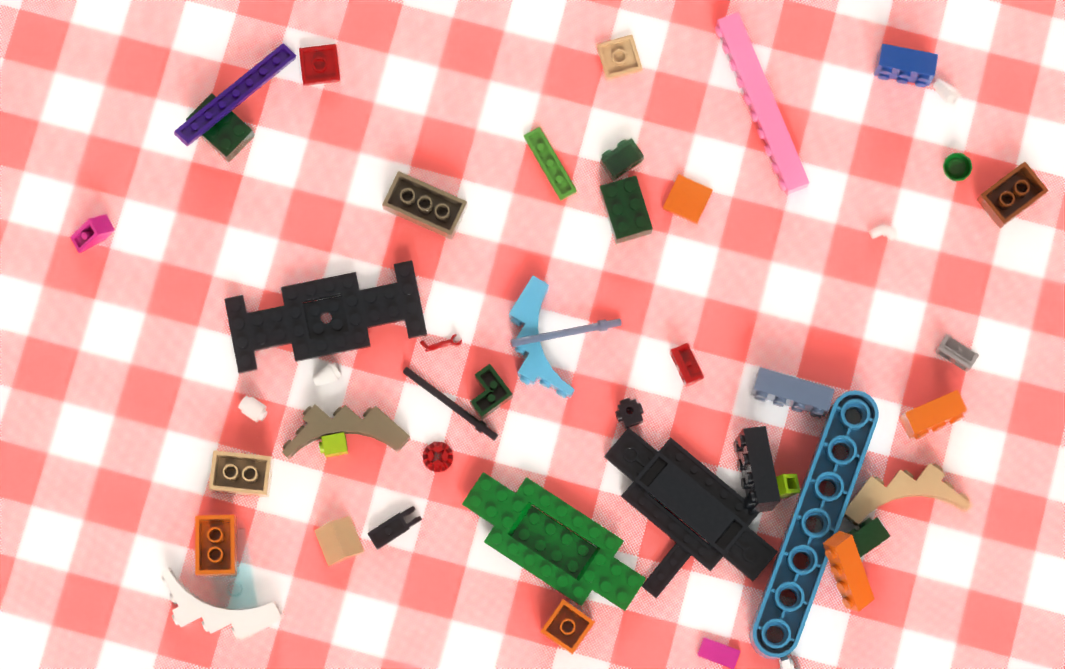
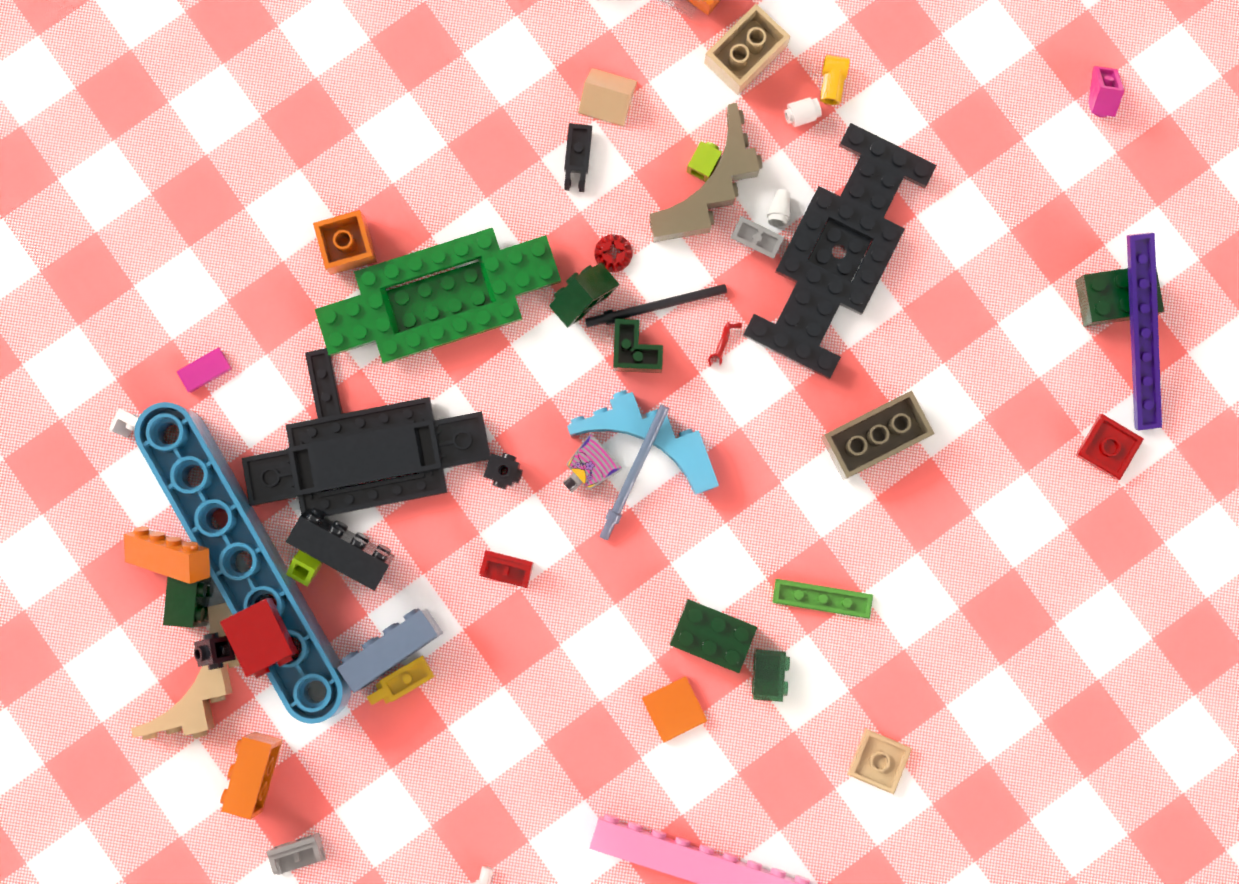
camera: 130 degrees right, 5 degrees up
(212, 408) = (834, 72): none -> yellow piece
(357, 373) = (757, 237): none -> light grey hinge
(480, 451) = (583, 293): none -> dark green brick
(583, 363) = (590, 465): none -> torso
(806, 371) = (402, 681): none -> yellow hinge
(849, 468) = (259, 638): none -> red brick
(880, 493) = (213, 651): none -> black brick

